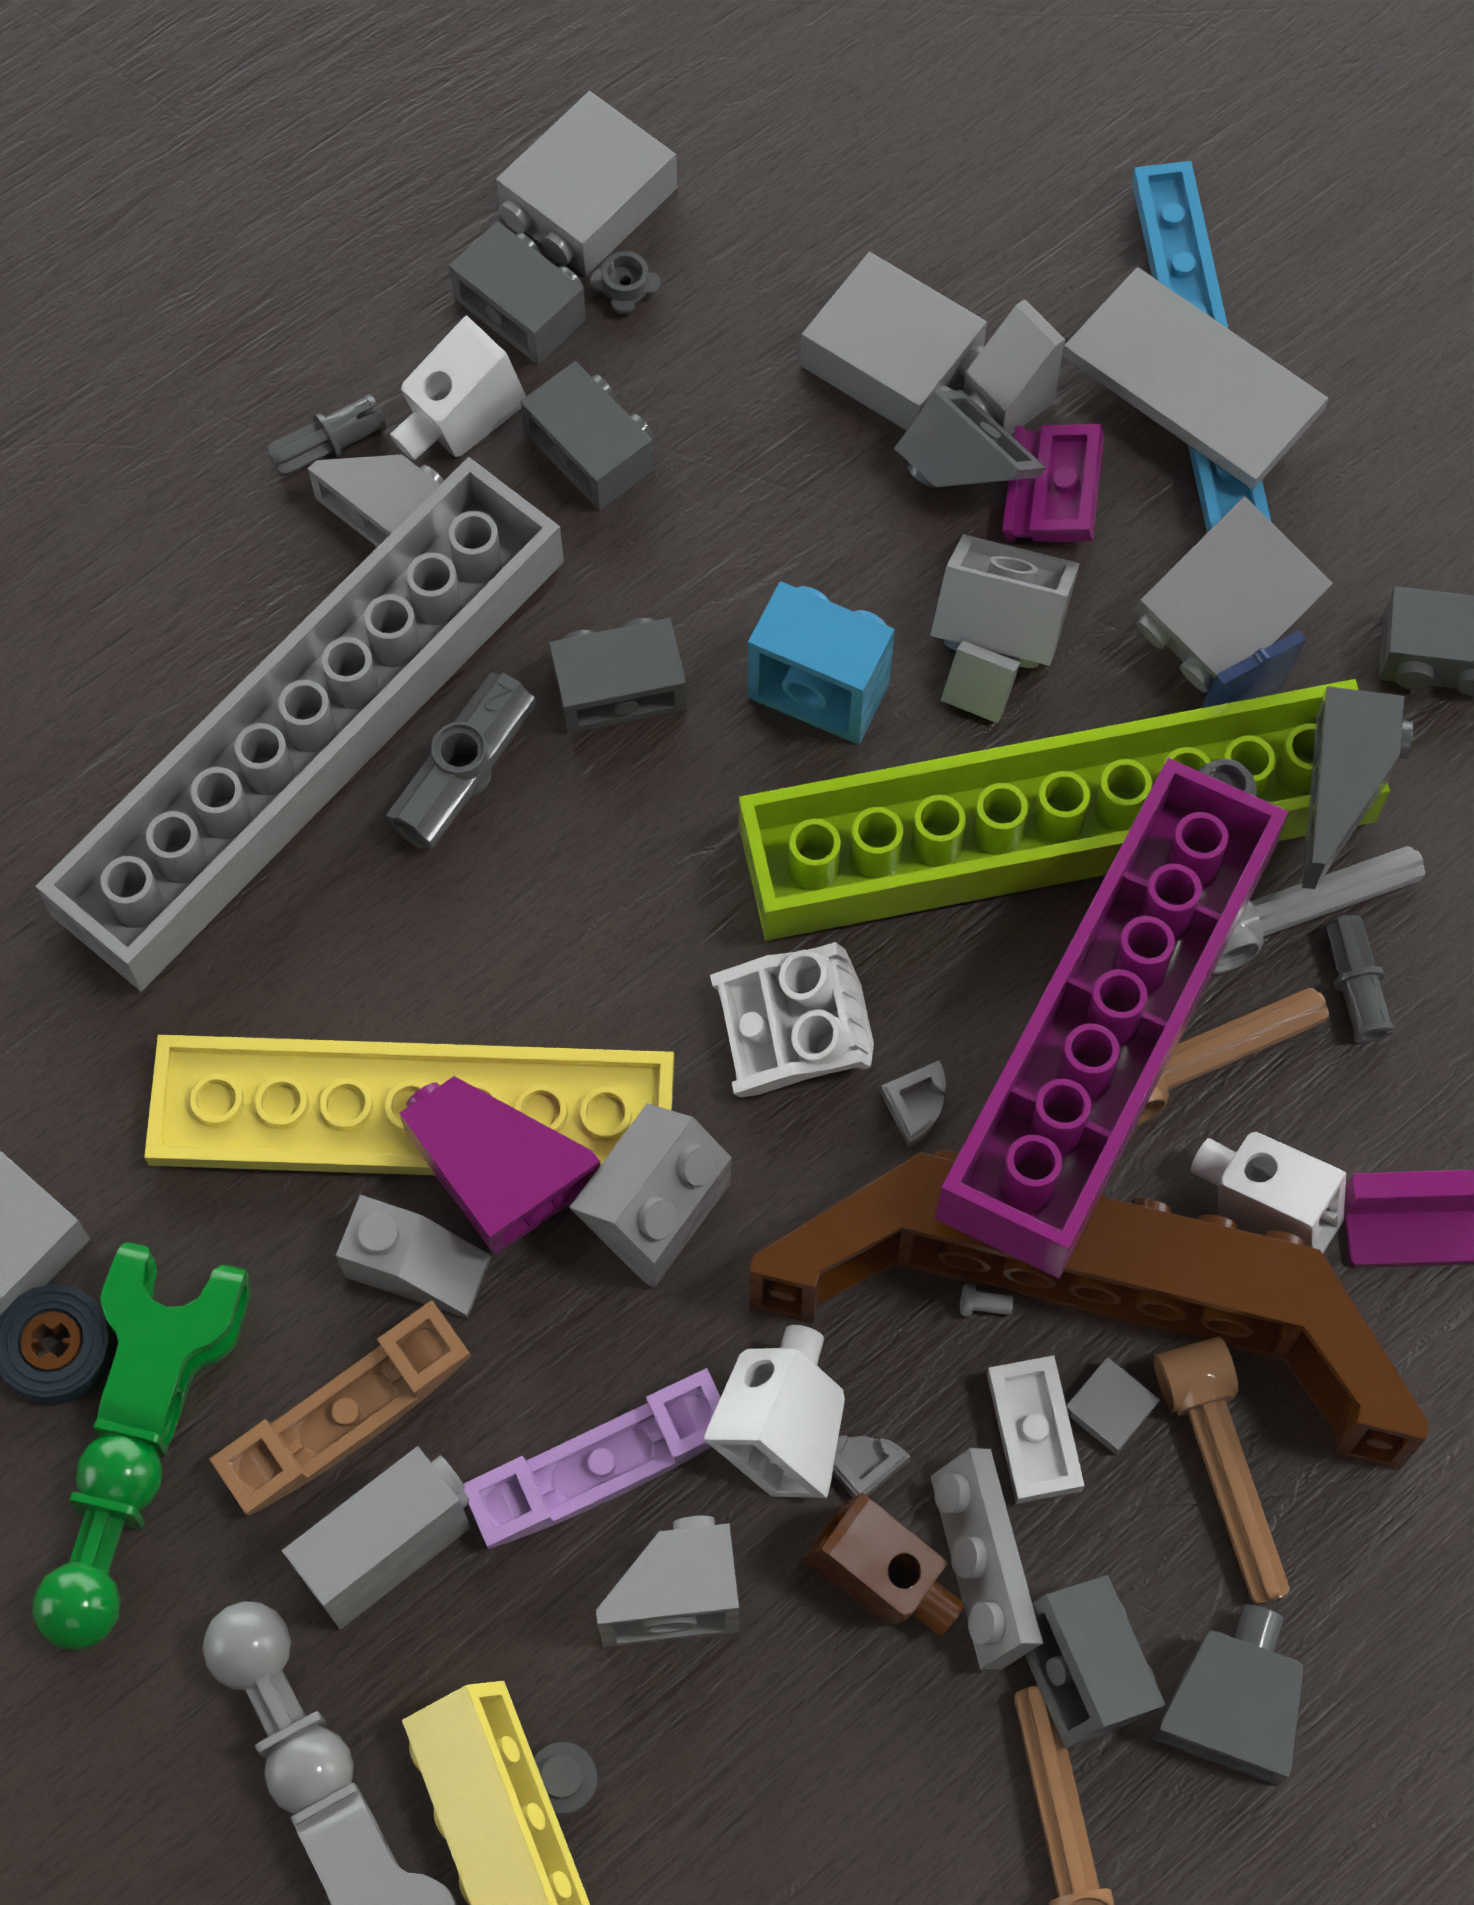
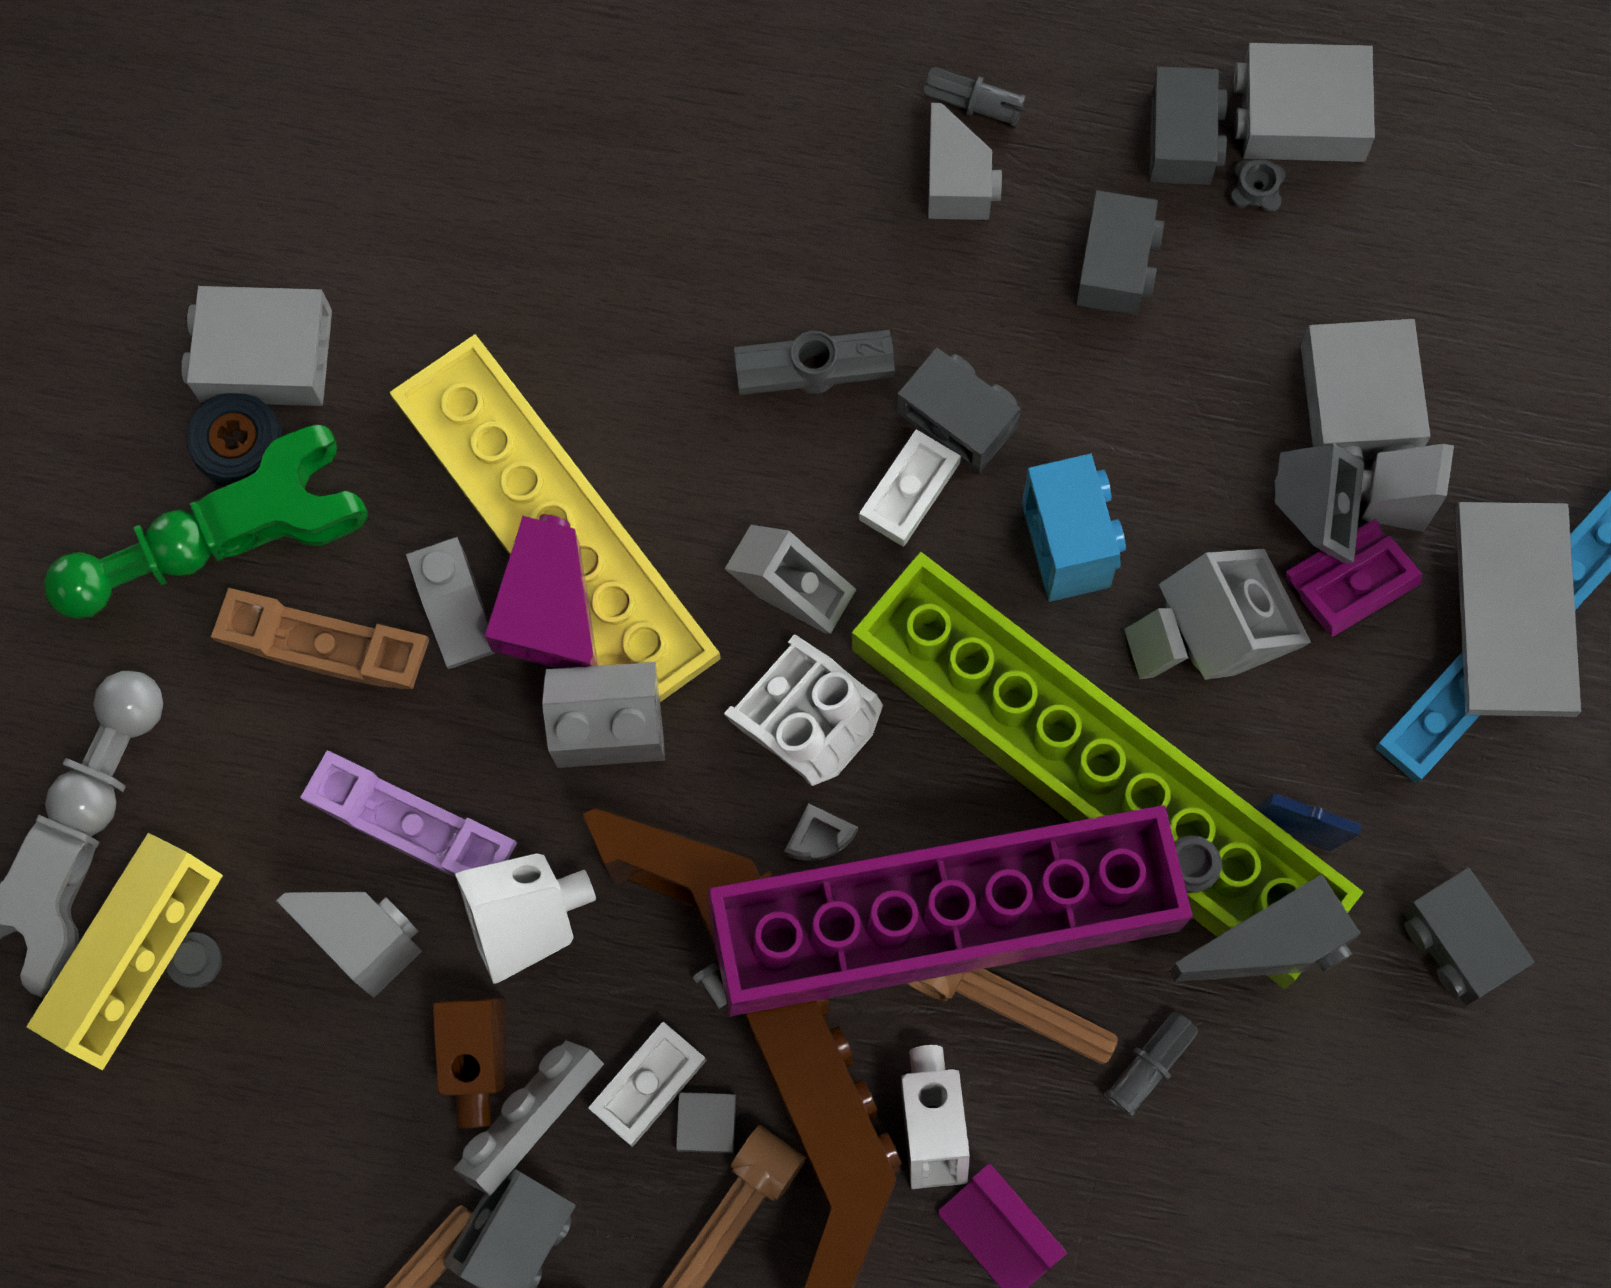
camera: 55 degrees right, 5 degrees up
(302, 724) = (758, 246): light grey brick -> none
(381, 1535) = (247, 726): light grey brick -> none
(458, 393) = (1069, 149): white torso -> none
(650, 936) = (790, 577): none -> light grey slope
(655, 773) = (909, 488): none -> white plate
(866, 1463) = (542, 991): light grey tile -> none
(1229, 595) = (1359, 759): light grey brick -> none
(1333, 893) = (1197, 996): light grey axle -> none

